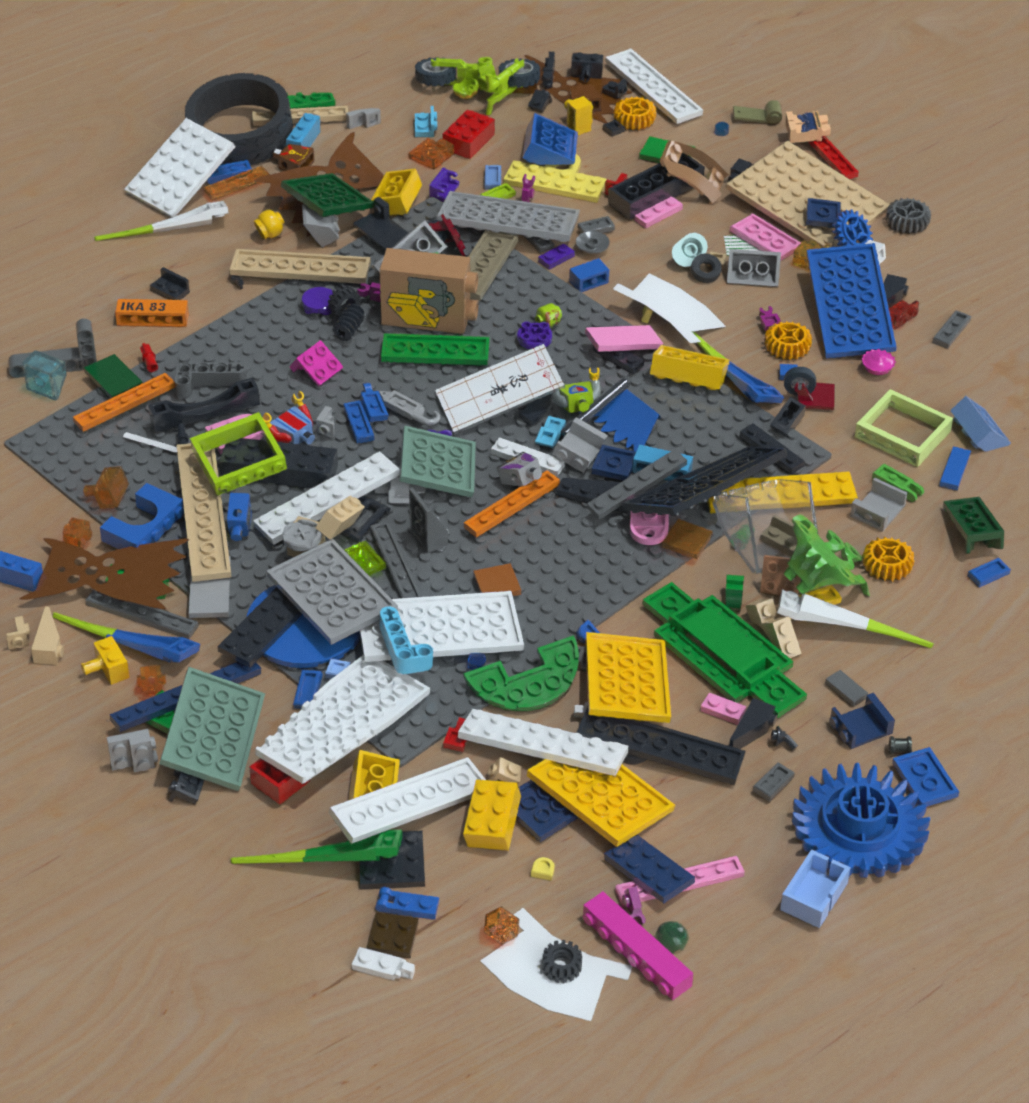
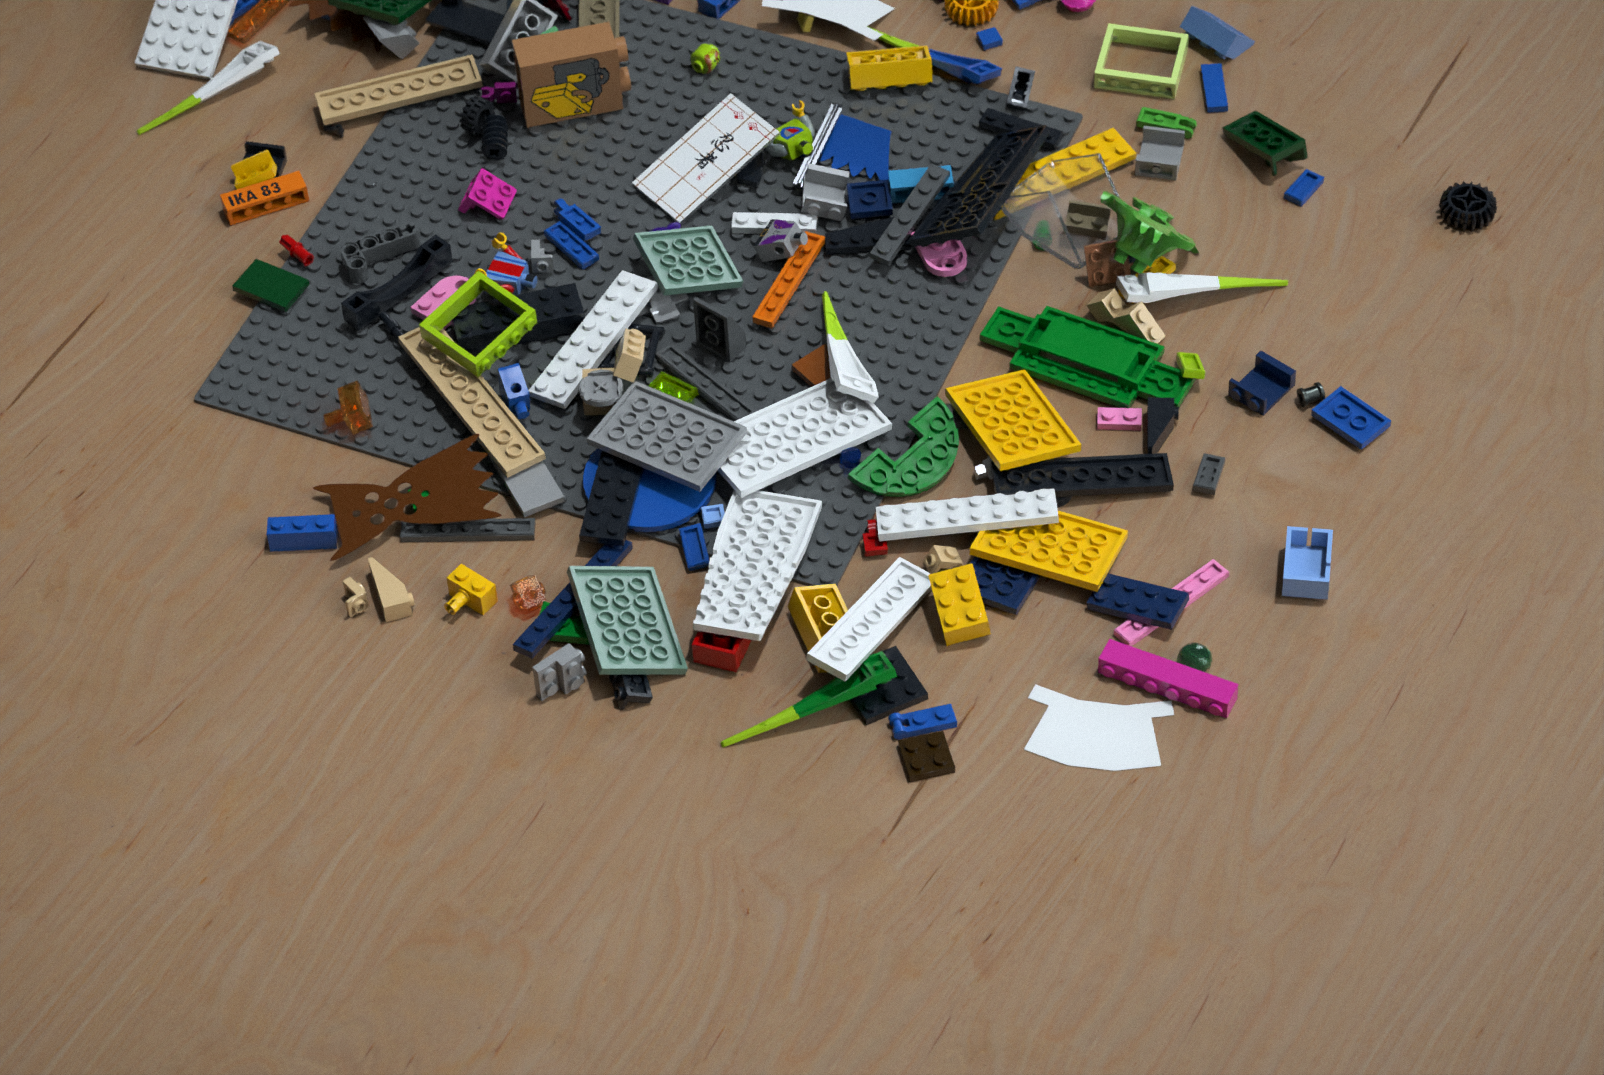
camera: 20 degrees left, 5 degrees up
(44, 374) = (196, 308): clear light blue slope -> none
(74, 358) = (198, 285): dark grey beam -> none
(77, 532) = (345, 465): clear orange brick -> none
(124, 402) = (303, 309): orange plate -> none
(150, 442) = (366, 343): white sticker -> none
(150, 499) = (415, 407): blue arch -> none
(156, 289) = (254, 169): none -> yellow bracket
(161, 647) = (508, 558): blue plate -> none
(269, 224) = (332, 52): yellow piece -> none
(316, 300) = (443, 123): dark purple tile -> none
(382, 965) = (933, 788): white hinge -> none
(405, 657) = (772, 468): medium azure beam -> none
(407, 407) = (616, 211): light grey plate -> none
(435, 349) = (606, 136): green plate -> none
(501, 925) = (1030, 707): clear orange brick -> none
(511, 587) = (845, 366): none -> white plate
(534, 334) = (702, 85): dark purple tile -> none
(543, 869) = (1034, 639): light yellow tile -> none
(550, 432) = (782, 187): medium azure slope -> none
(562, 971) = (1103, 730): black tyre -> none
(586, 627) = (939, 386): blue tile -> none
(623, 338) = (801, 57): bright pink tile -> none
(623, 359) = (803, 79): black plate -> none
(632, 901) = (1143, 639): magenta plate -> none
(687, 539) = (989, 255): clear orange tile -> none
(734, 591) = (1065, 295): leg -> none
(779, 736) = (1190, 427): black plate -> none
(802, 383) = (1025, 52): plate -> none
(807, 684) = (1190, 365): none -> lime tile
(846, 688) = (1228, 355): dark grey tile -> none
(880, 840) = (1313, 482): blue gear -> none
(888, 558) = (1199, 207): light orange gear -> none

